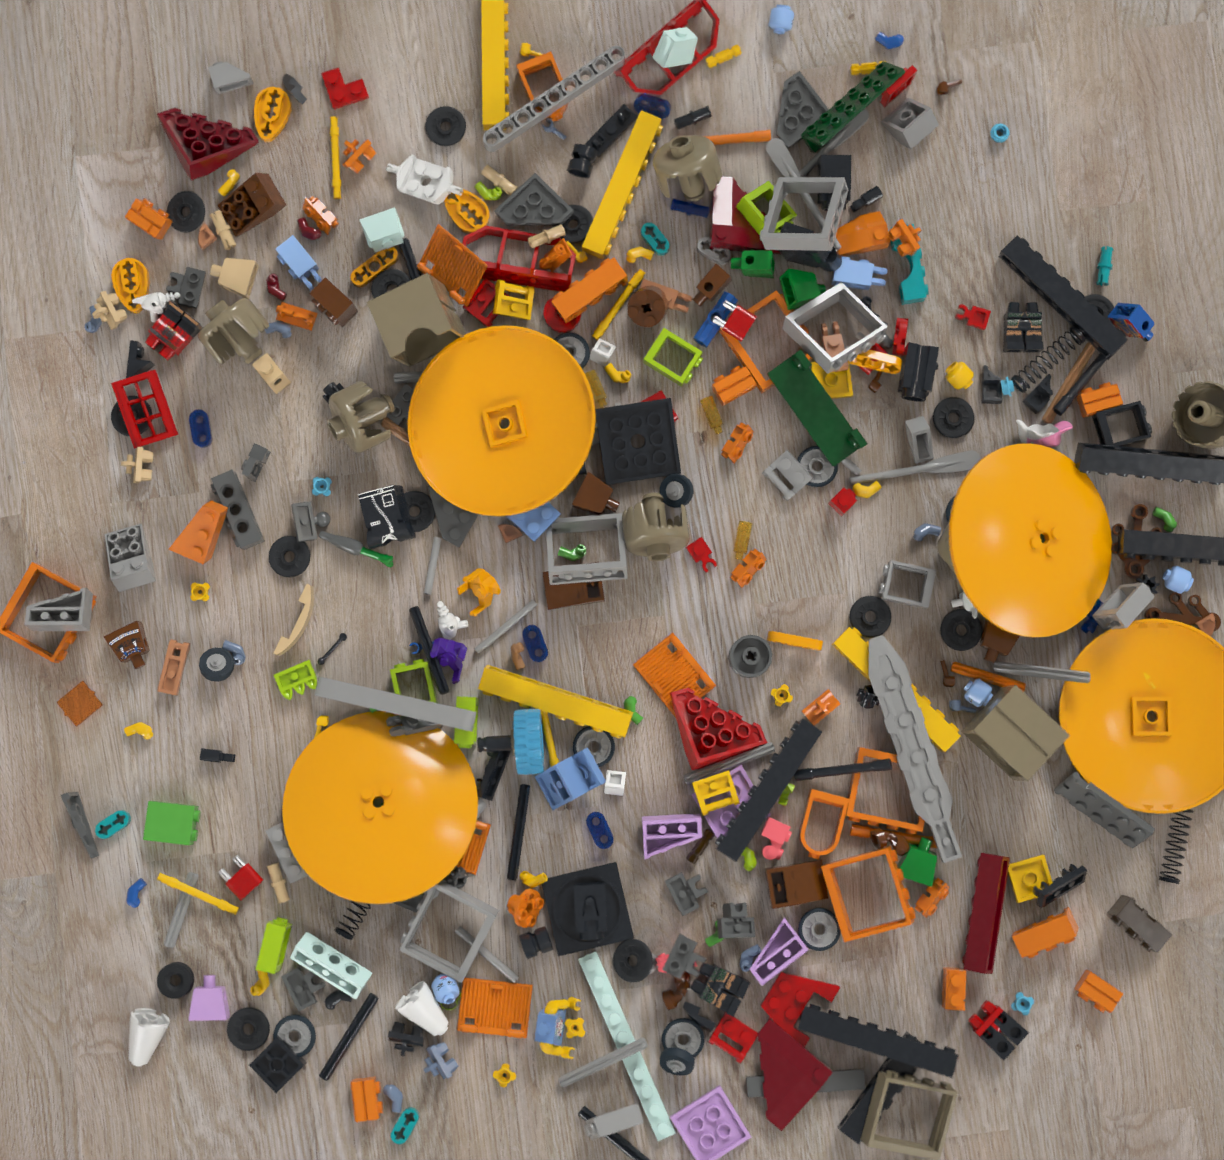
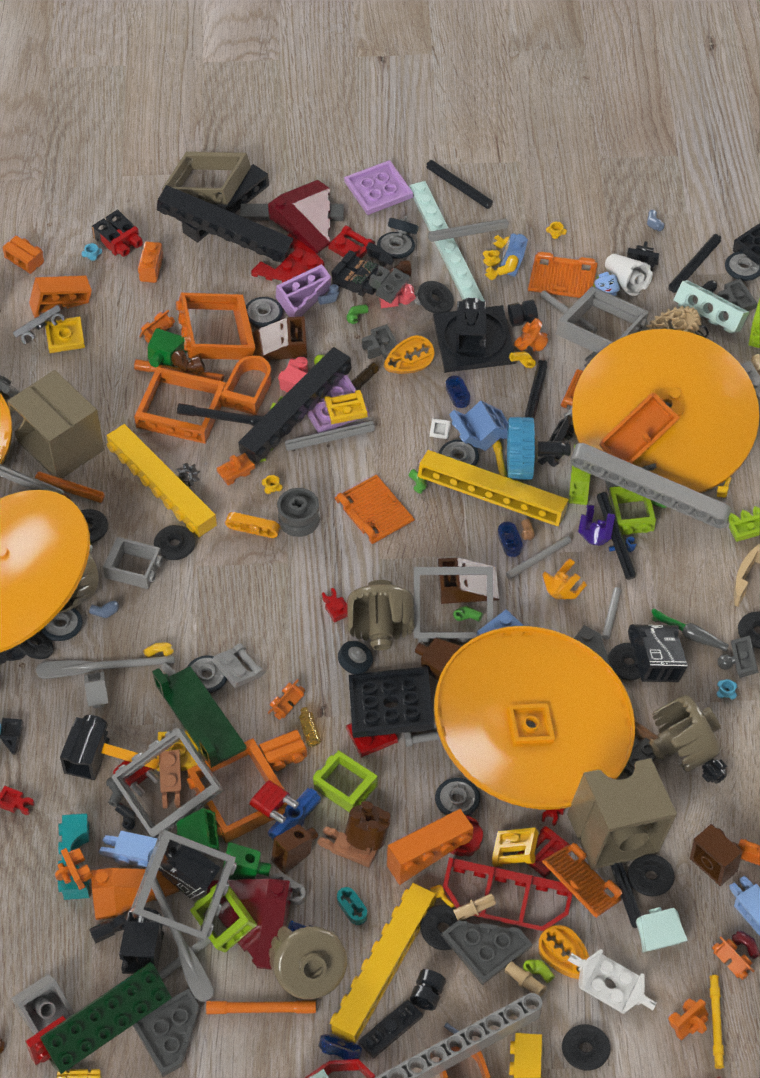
camera: 175 degrees left, 30 degrees down
(342, 637) = (703, 559): black hinge -> none
(356, 932) = (682, 319): none -> tan gear
(365, 1099) = (679, 219): orange brick -> none
(375, 258) = (675, 891): light orange beam -> none
(401, 1123) = (642, 201): teal beam -> none
(404, 759) = (639, 429): none -> orange container
(445, 1068) = (616, 239): sand blue hips -> none
(448, 622) = (596, 559): white piece -> none
(556, 256) = (466, 886): orange hinge -> none
(597, 388) = (431, 761): clear yellow cylinder -> none
(602, 352) = (420, 797): white slope -> none
(604, 324) = (418, 821): yellow piece -> none
(613, 1122) = (462, 184): light grey brick -> none
(617, 376) = (406, 771): yellow arm -> none
(638, 252) = (372, 892): yellow arm -> none
(656, 883) = (408, 346): none -> light orange piece
(669, 831) = (391, 383): lavender wedge -> none
(692, 117) = (294, 1033): black axle -> none
(710, 732) = (342, 456): red slope -> none
(735, 922) = (337, 316): dark grey plate -> none
(742, 539) = (292, 614): clear yellow cylinder -> none
(743, 575) = (283, 593): orange hinge -> none
(843, 501) = (185, 636): red brick -> none
(875, 385) = (133, 744): reddish brown hand -> none
(900, 336) = (98, 773): red plate -> none
(912, 744) = (154, 431): light grey plate -> none
(948, 681) = (107, 485): reddish brown hand -> none
(955, 705) = (104, 465): sand blue hand -> none
(959, 375) = (42, 743): yellow head -> none
(964, 412) = (59, 719): black wheel -> none
(978, 692) = (82, 471): light blue head -> none
(986, 913) = (110, 310): dark red brick -> none

